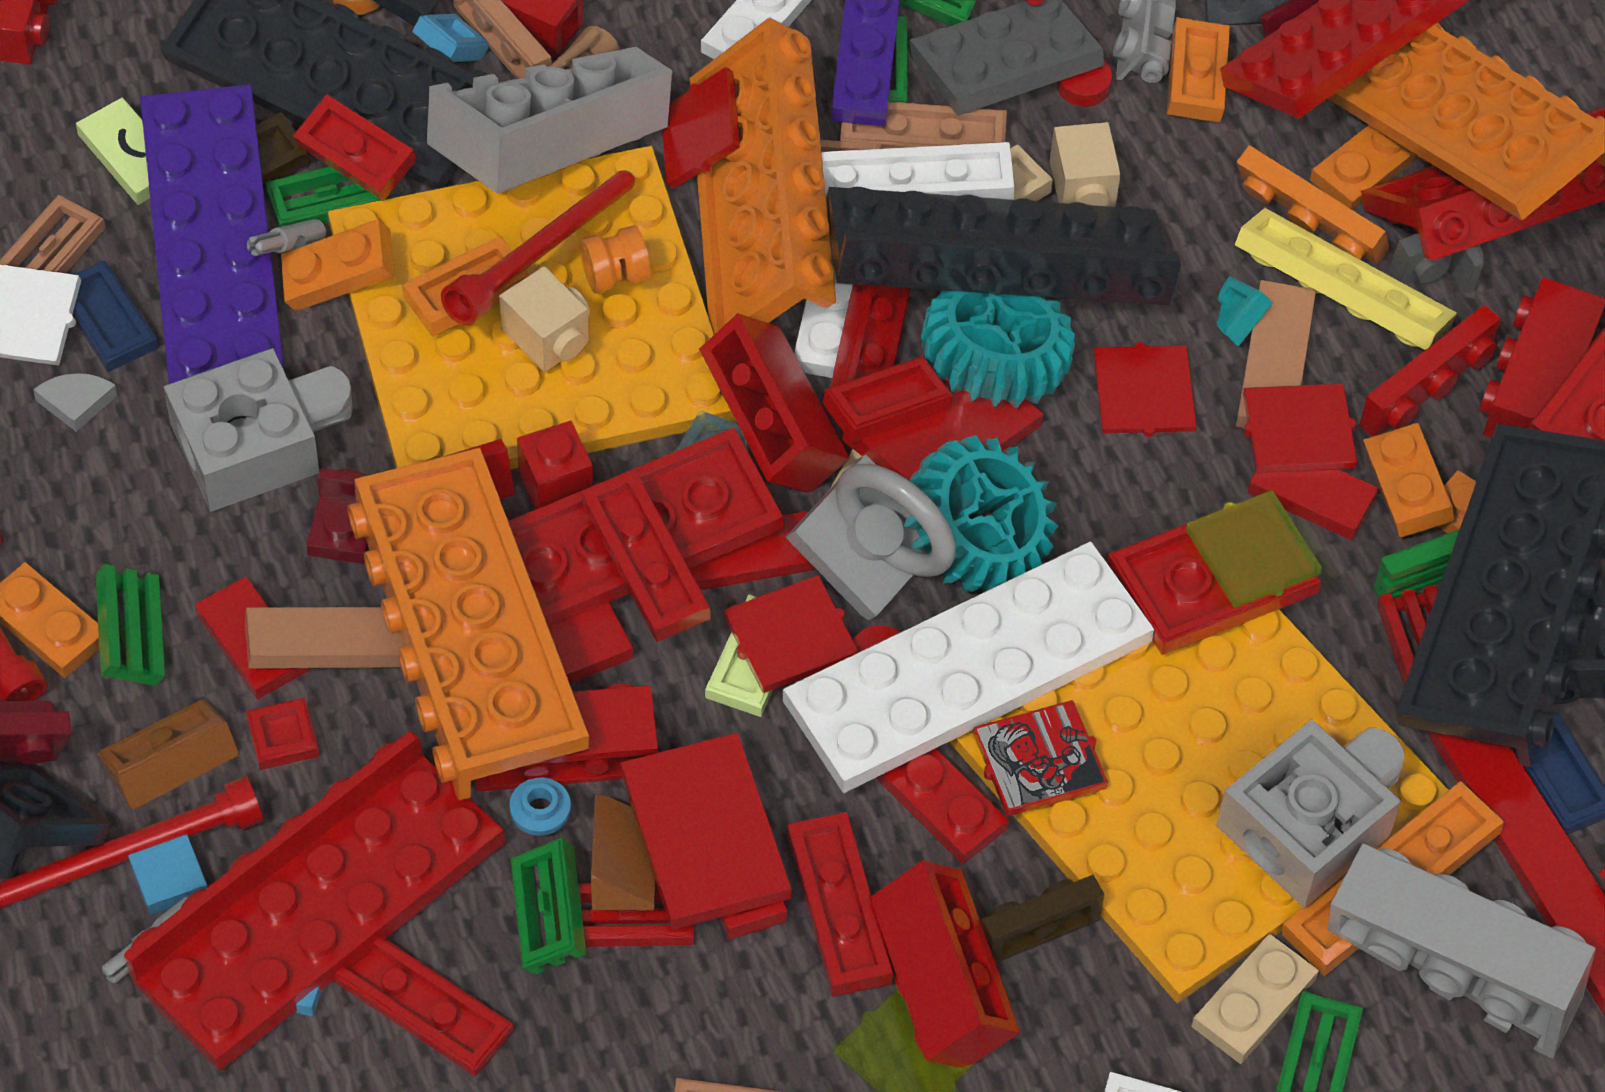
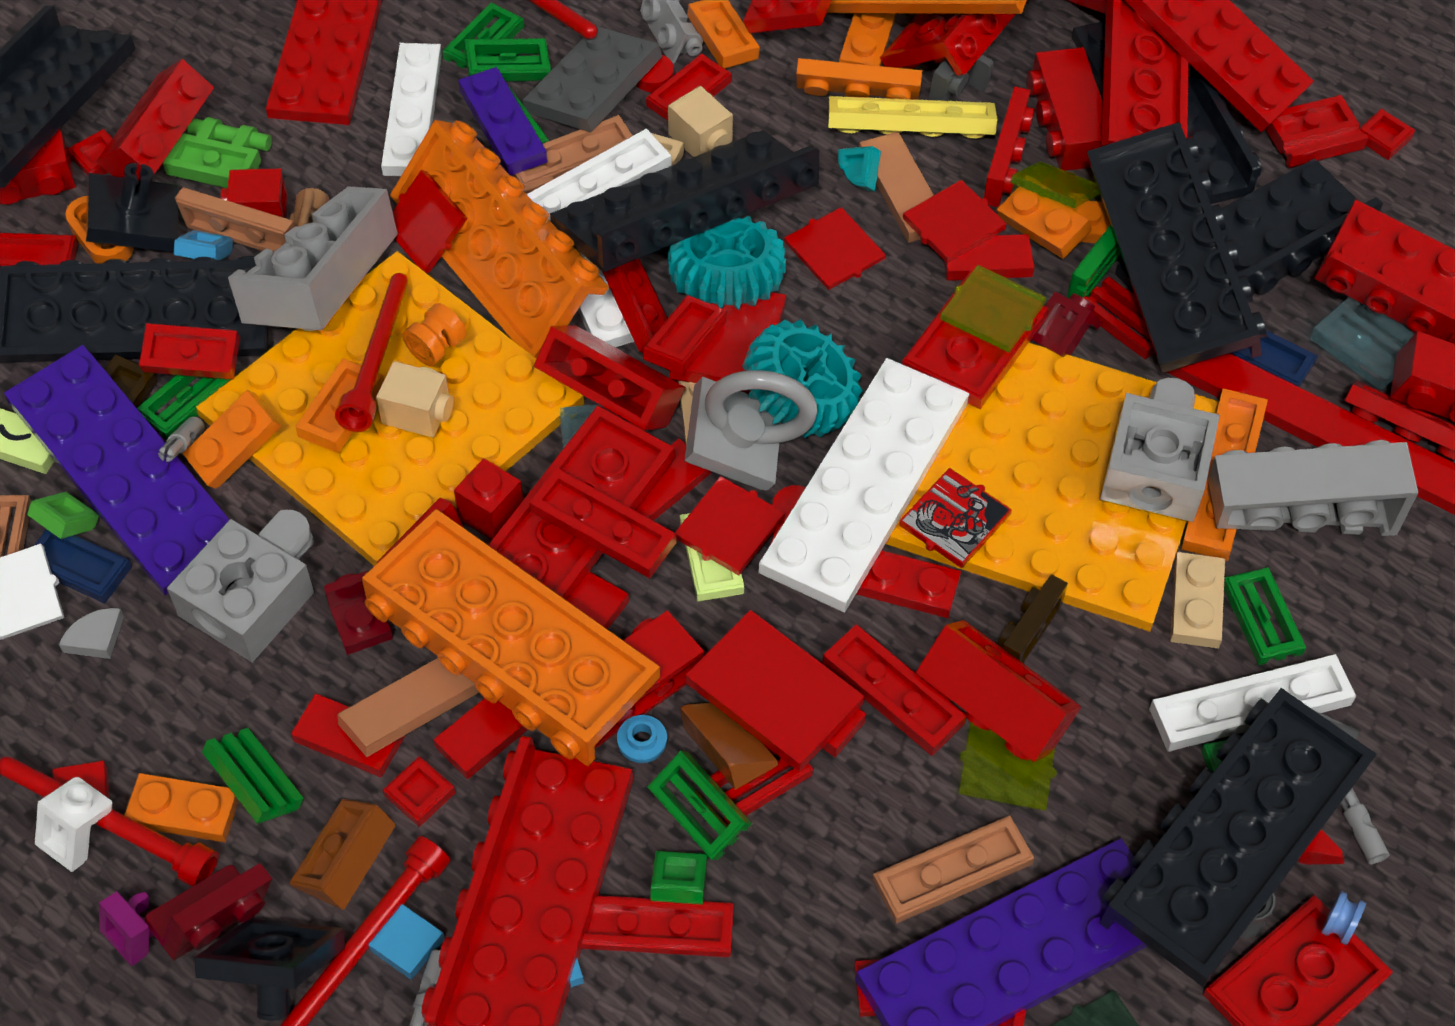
camera: 30 degrees left, 0 degrees up
(122, 257) = (62, 515): none -> bright green tile
(375, 712) = (478, 736): none -> red tile
(476, 966) = (678, 877): none -> green tile
(1131, 114) = (697, 73): none -> red tile
(1338, 612) = (1065, 323): none -> dark red bracket
(1446, 441) = (1056, 184): none -> clear neon green piece

